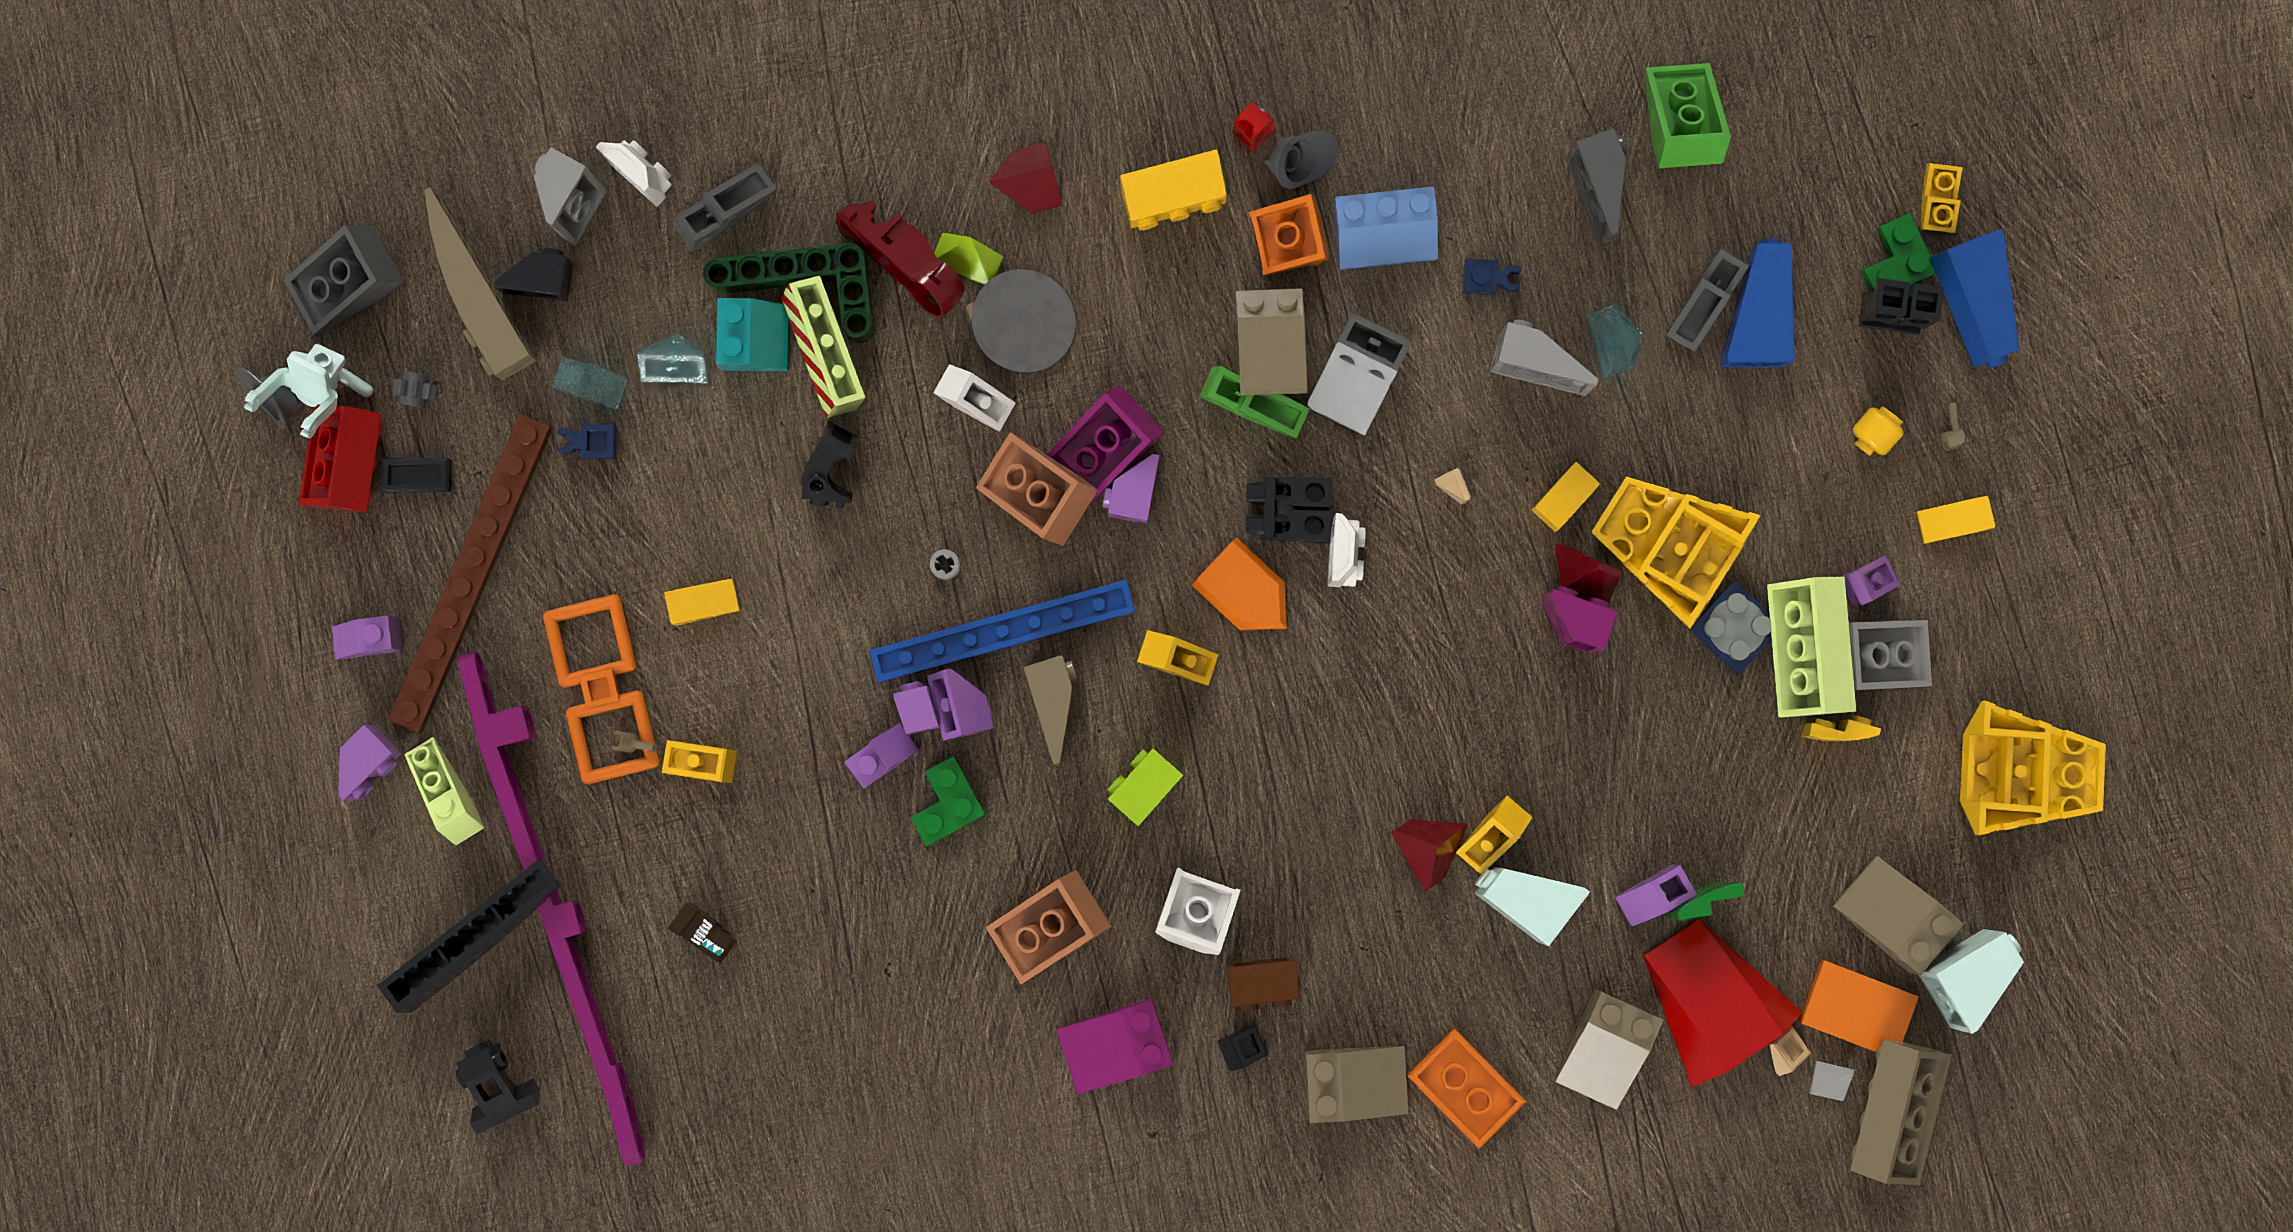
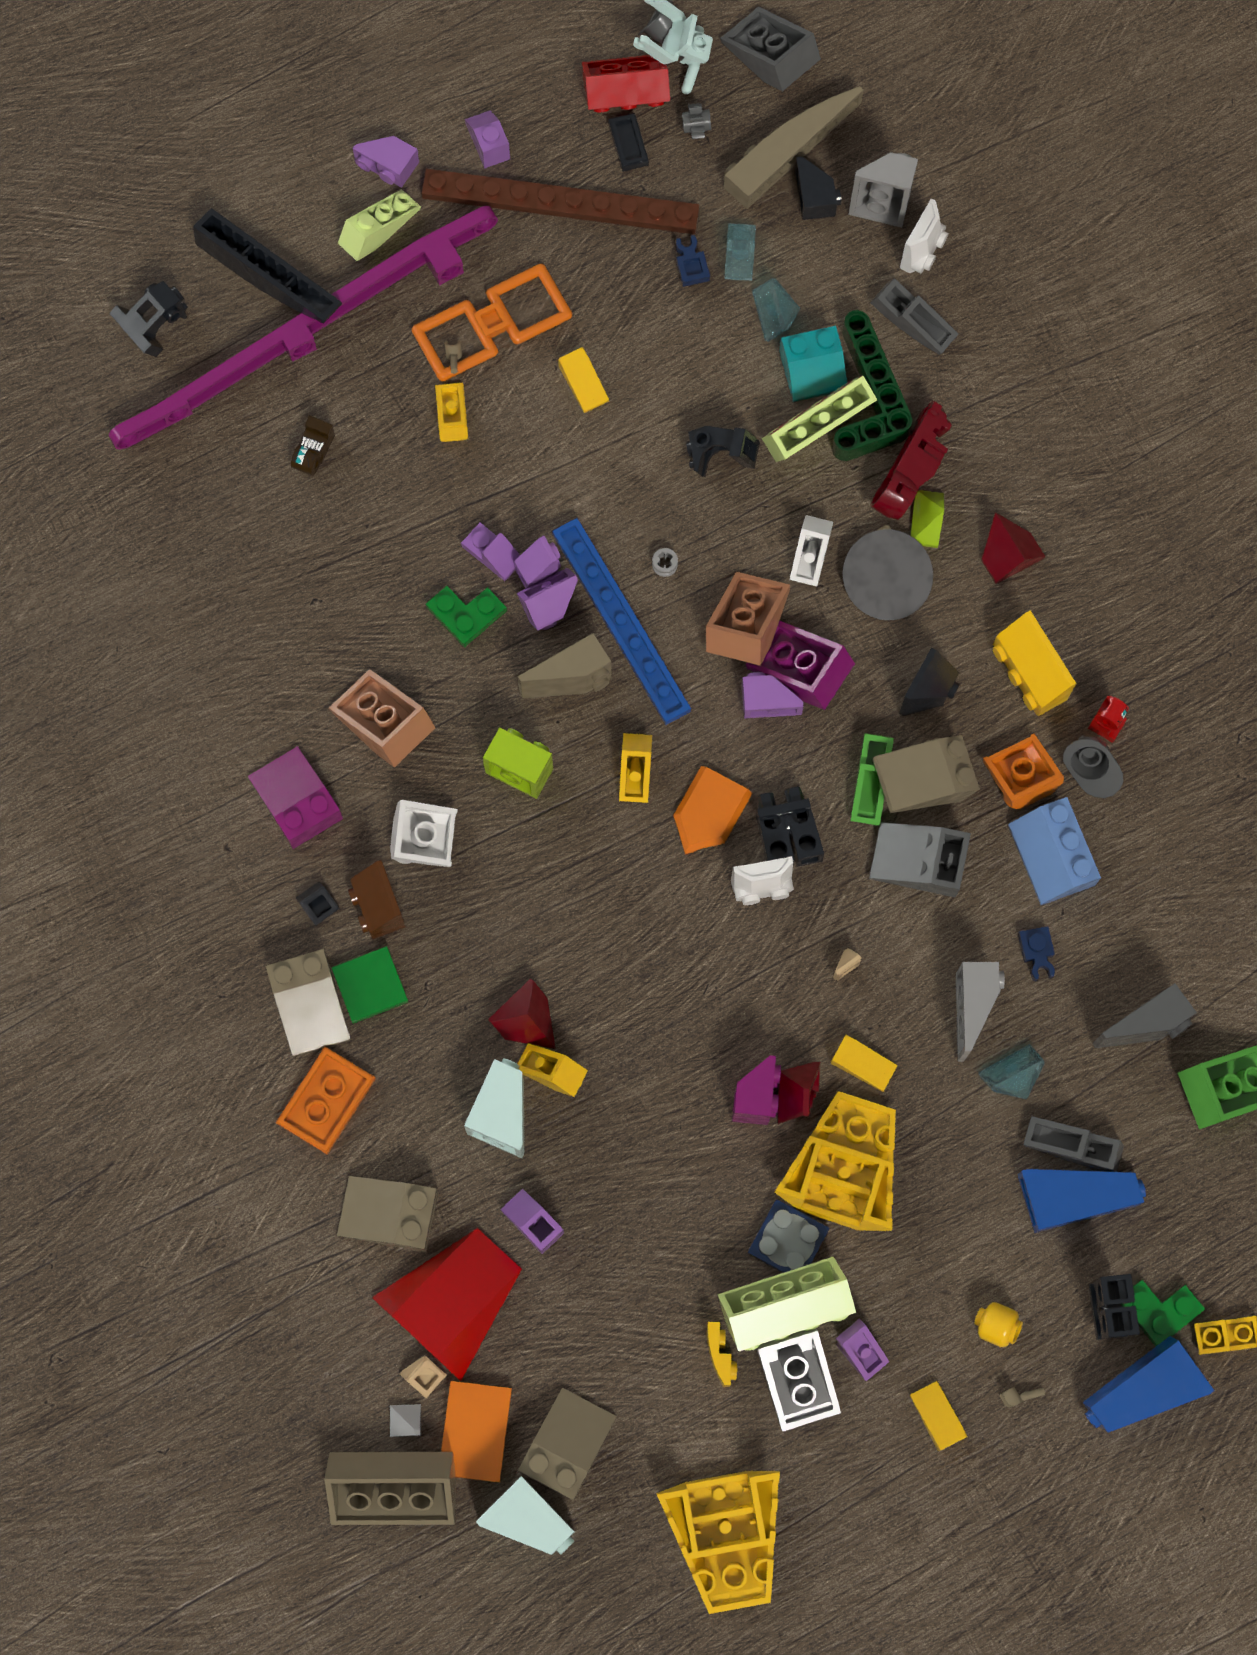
camera: 75 degrees right, 10 degrees down
(1166, 308) = (931, 685): none -> black slope
(1349, 1010) = (369, 985): none -> green tile
(1701, 904) = (533, 1255): green slope -> none

